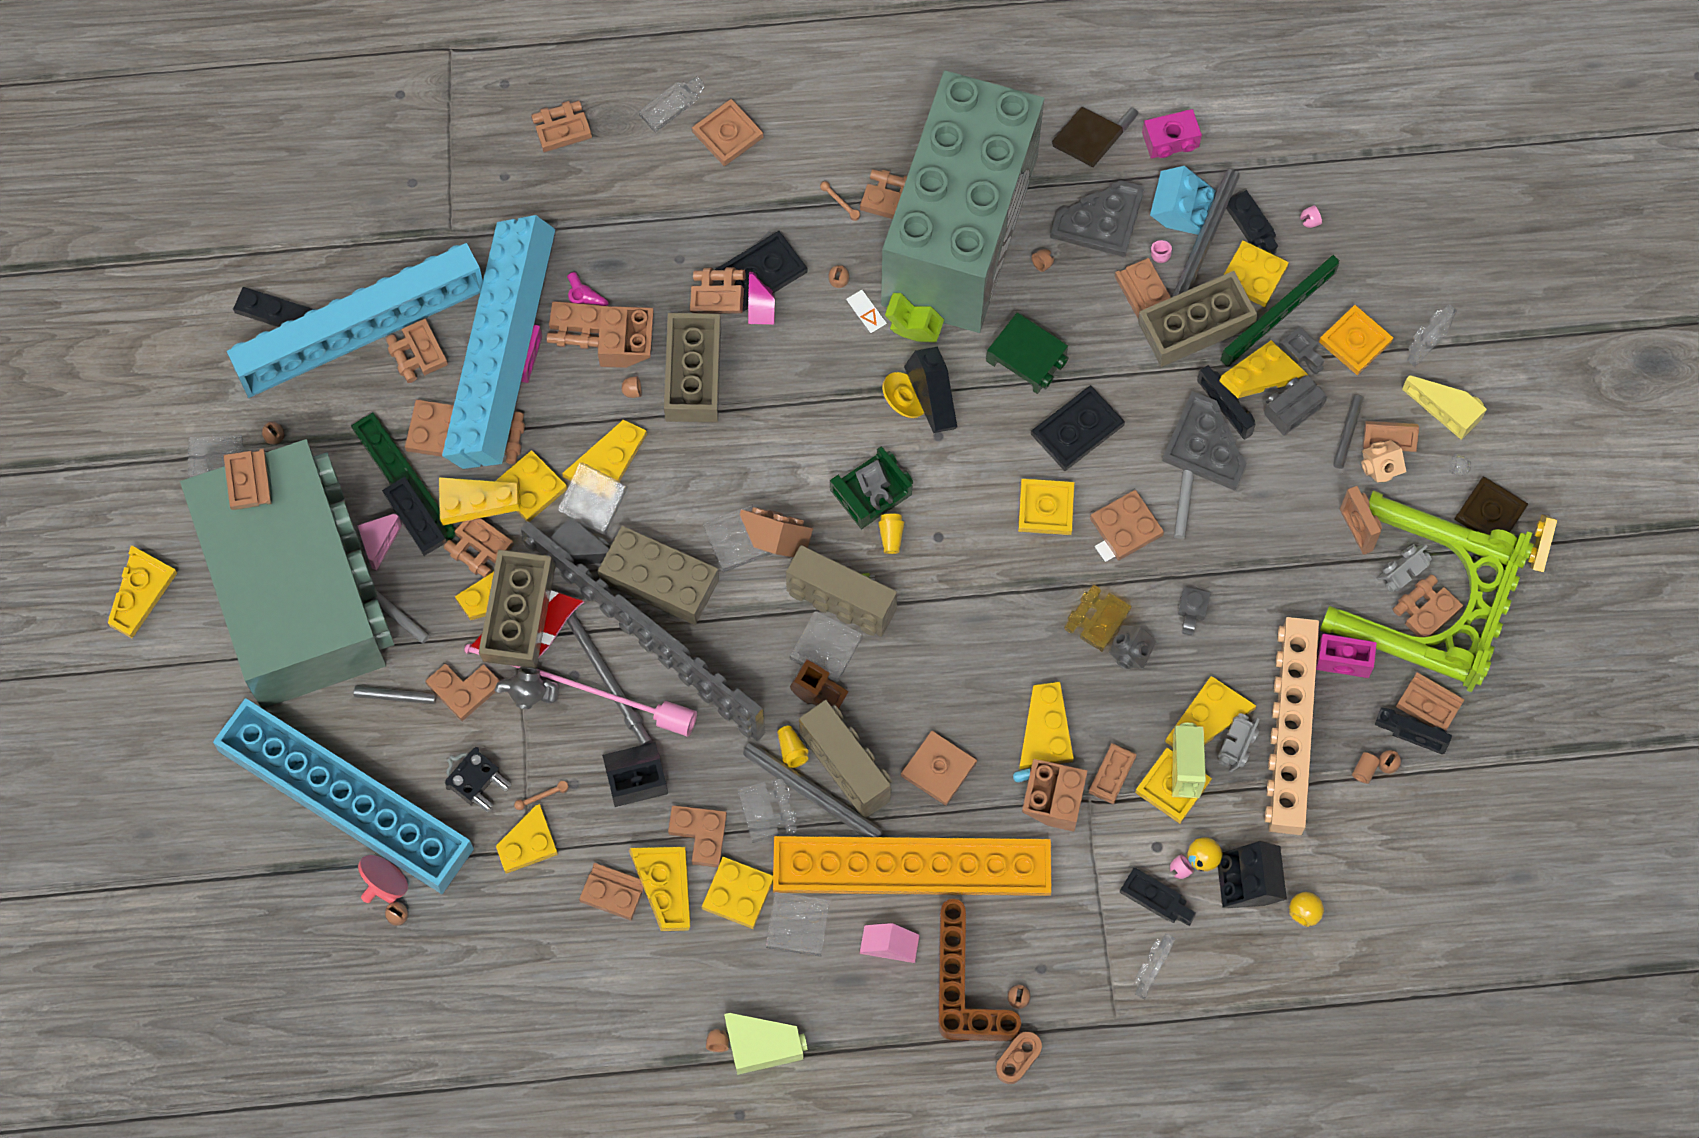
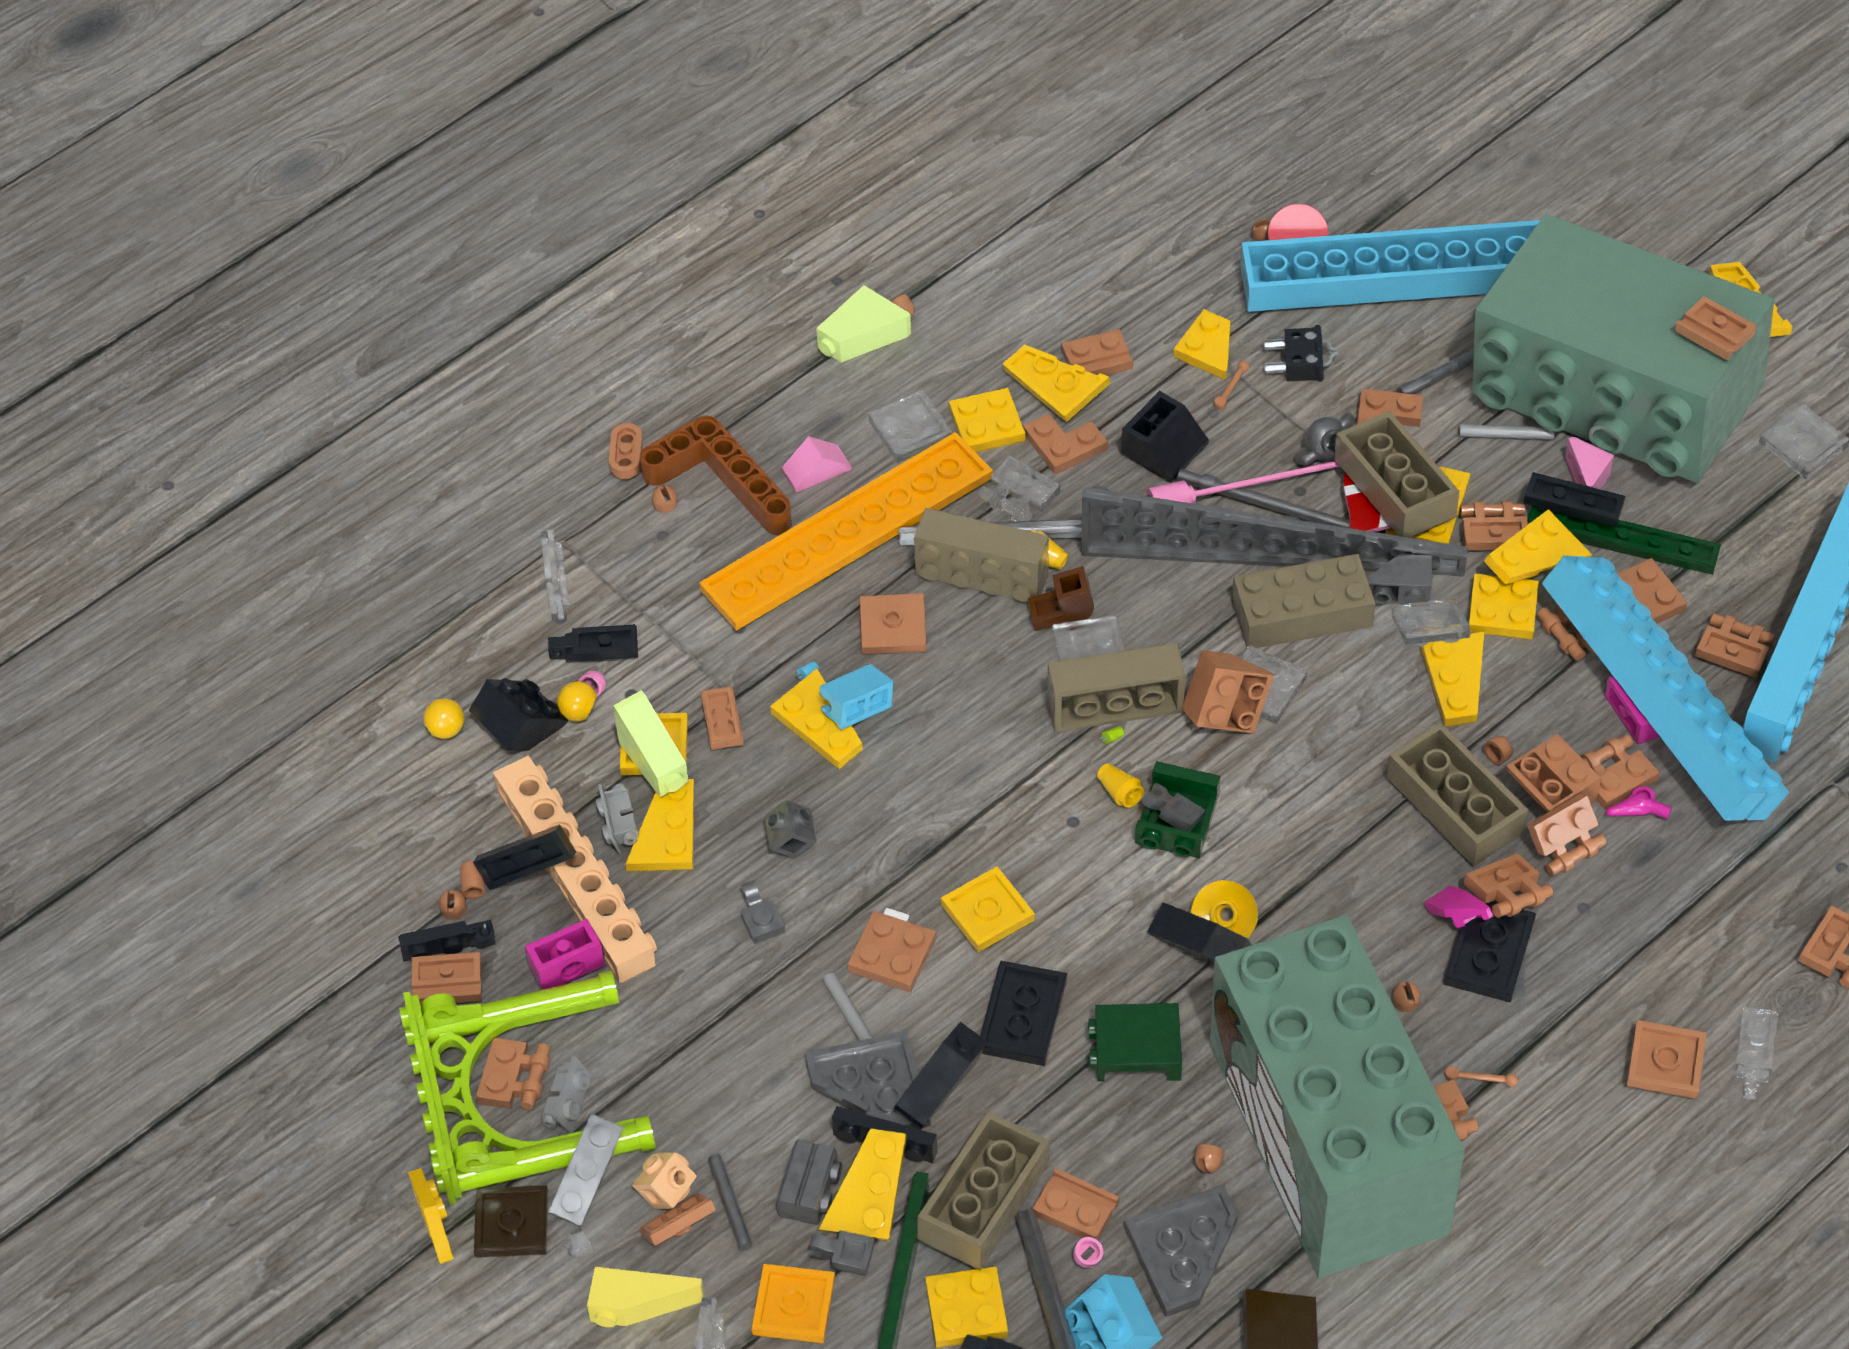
camera: 145 degrees right, 15 degrees down
(269, 437) = (1783, 496): nougat hinge -> none
(652, 295) = (1561, 826): none -> plate
(1012, 716) = (857, 696): none -> medium azure hinge
(1054, 794) = (760, 658): nougat slope -> none
(1105, 621) = (837, 842): clear yellow plate -> none
(1166, 406) = (941, 1075): none -> black slope
(1327, 740) = (524, 856): none -> black plate
(1360, 520) = (644, 1093): nougat plate -> none
(1428, 499) = (586, 1170): none -> plate

